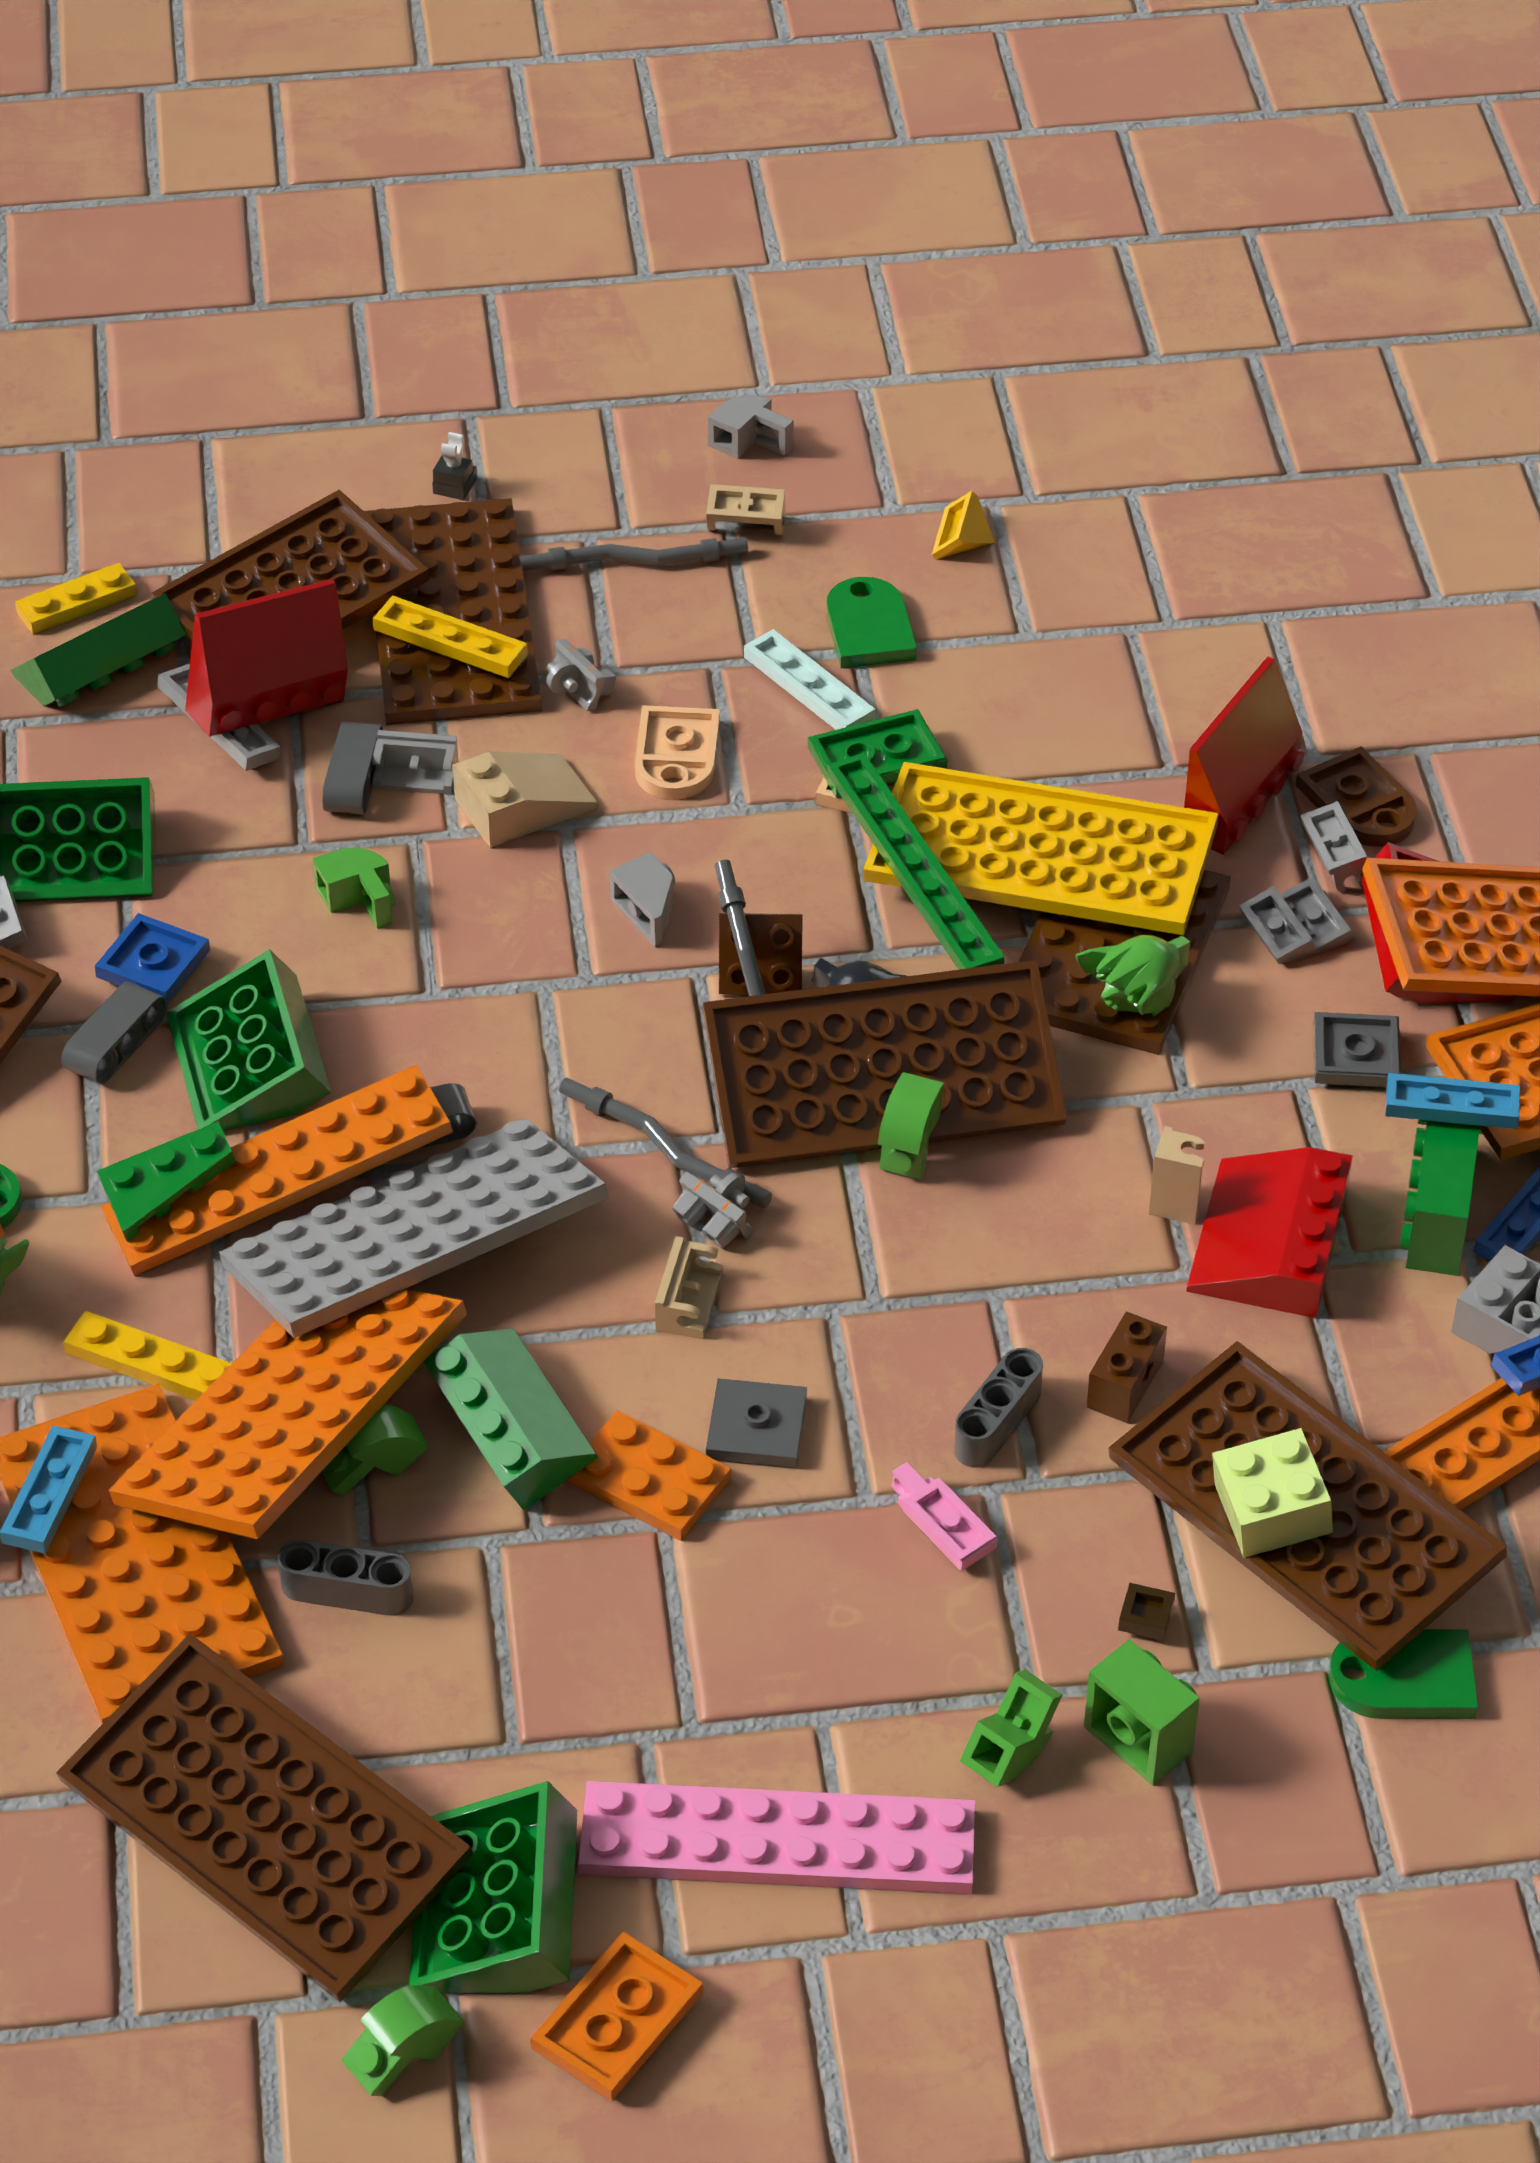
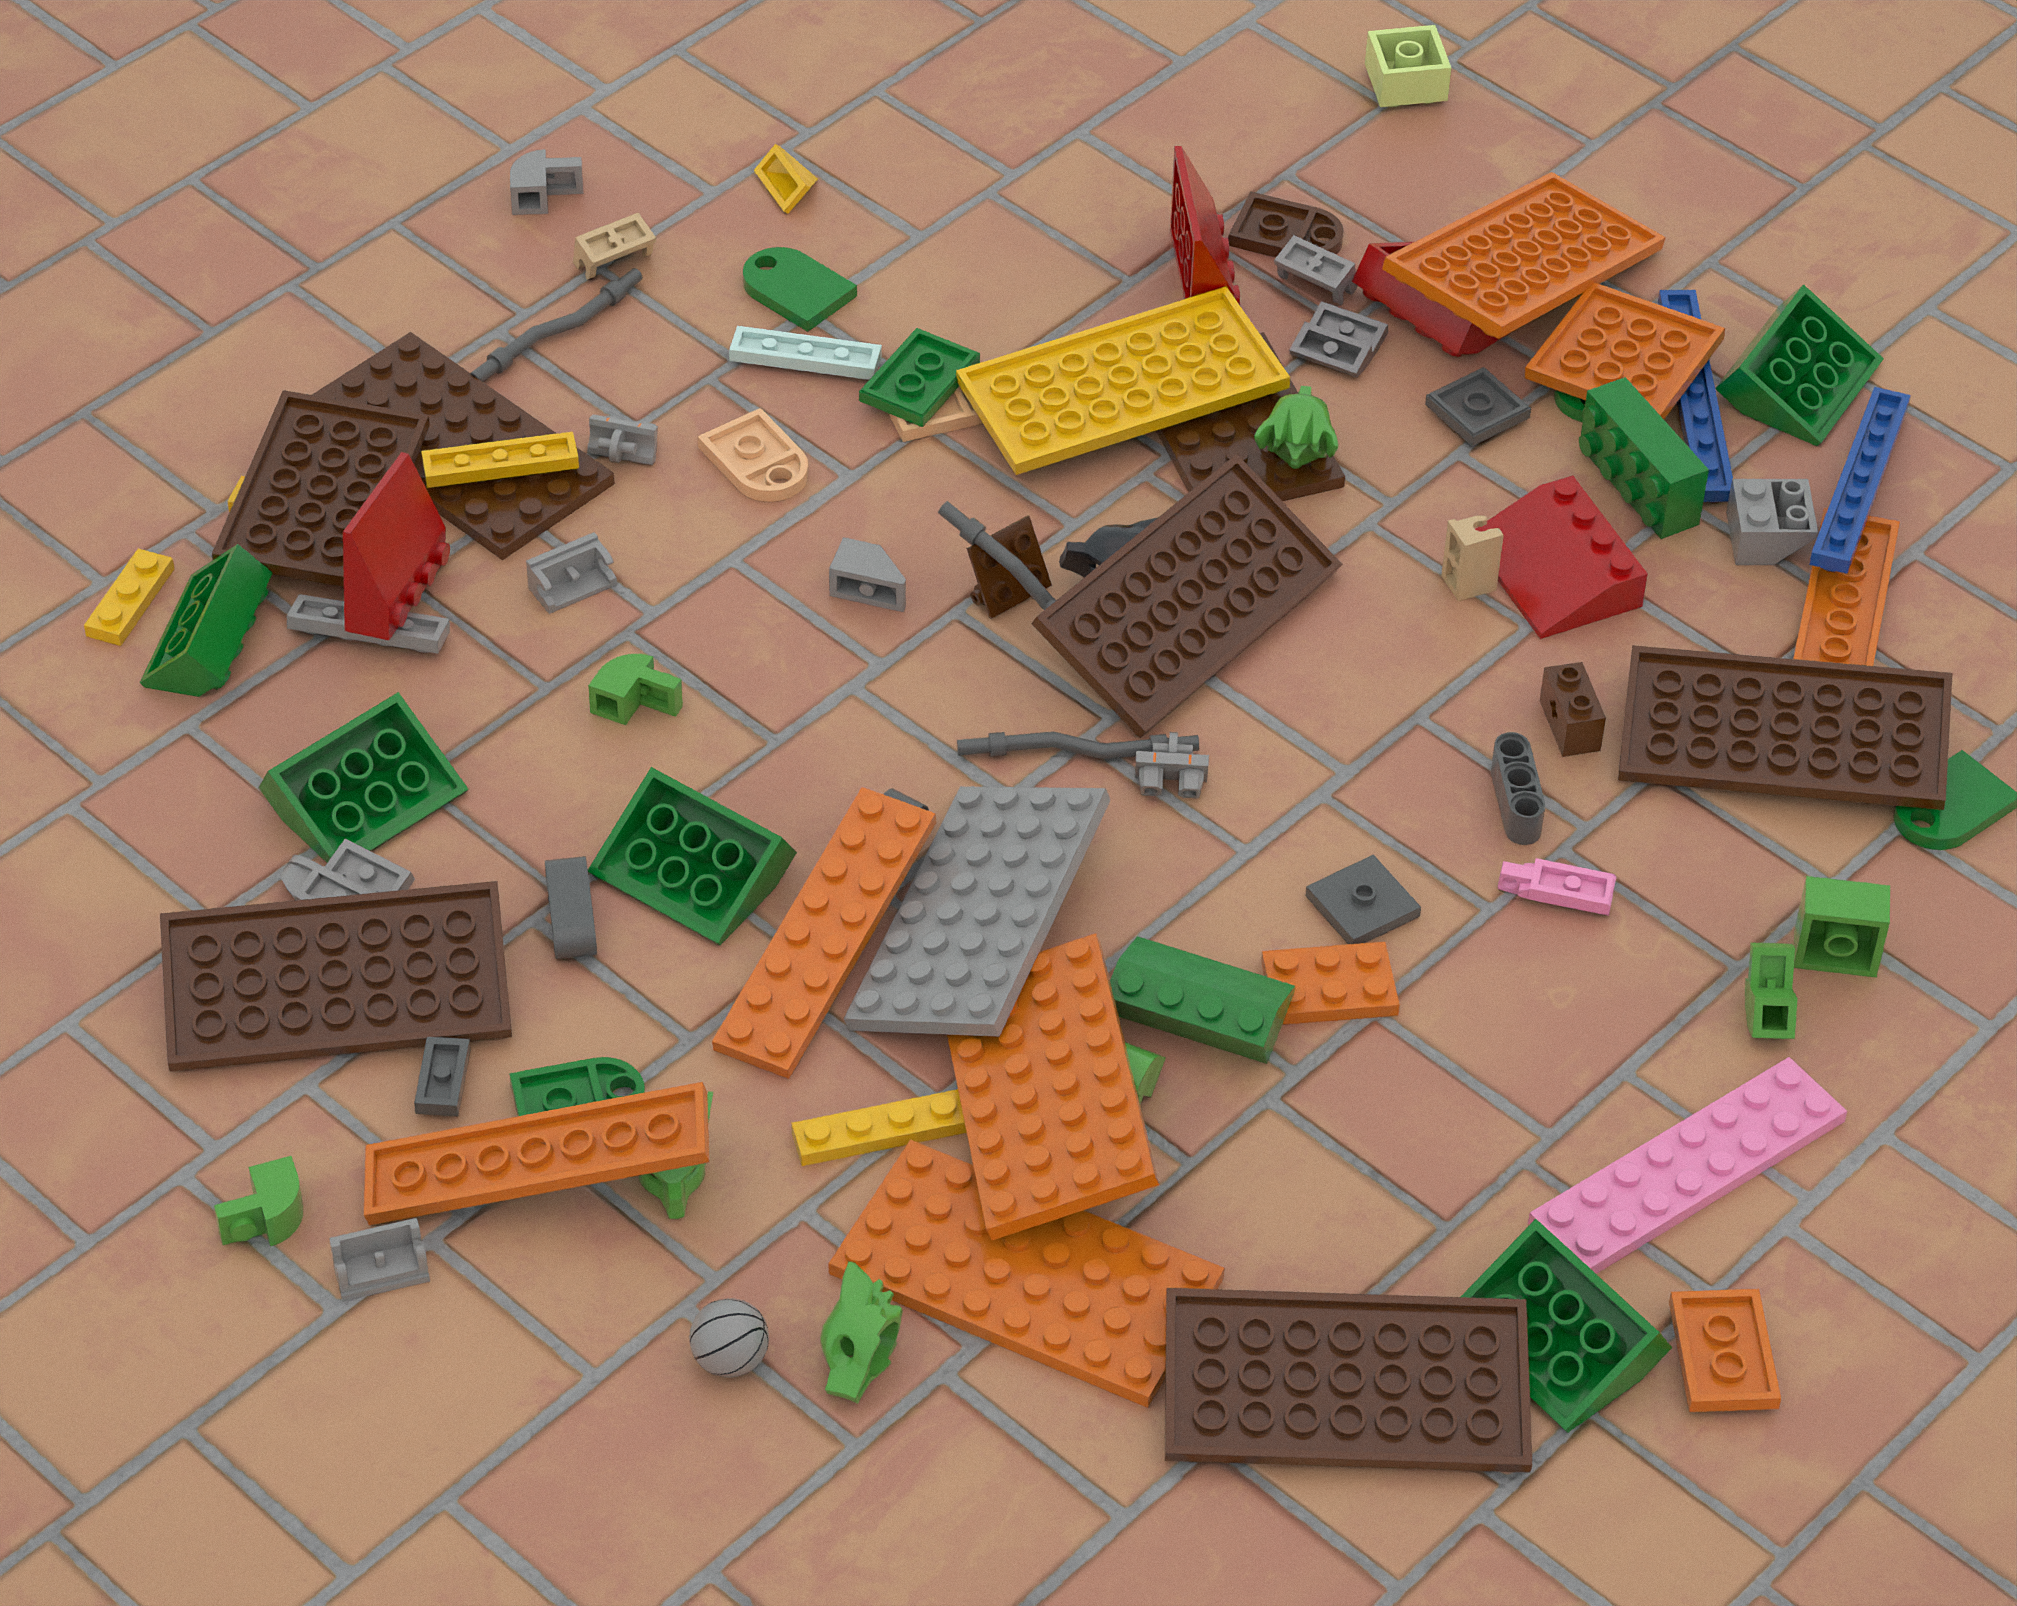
camera: 40 degrees left, 0 degrees up
(48, 1489) = (934, 1260): dark azure plate -> none
(153, 956) = (530, 833): blue plate -> none
(155, 1178) = (751, 986): green wing -> none
(345, 1577) = (1209, 1185): dark grey beam -> none
(351, 769) = (526, 603): dark grey beam -> none
(399, 2028) = (1609, 1464): bright green brick -> none
(452, 473) = (341, 332): pearl dark grey piece -> none
(518, 793) = (677, 556): tan slope -> none
(687, 1289) = (1213, 839): tan hinge -> none
(908, 1123) = (1259, 626): bright green brick -> none
(914, 863) = (1059, 437): green plate -> none
(1146, 1611) = (1758, 864): dark brown plate -> none
(1272, 1492) = (1776, 728): yellowish green brick -> none
(1452, 1100) = (1622, 393): dark azure plate -> none

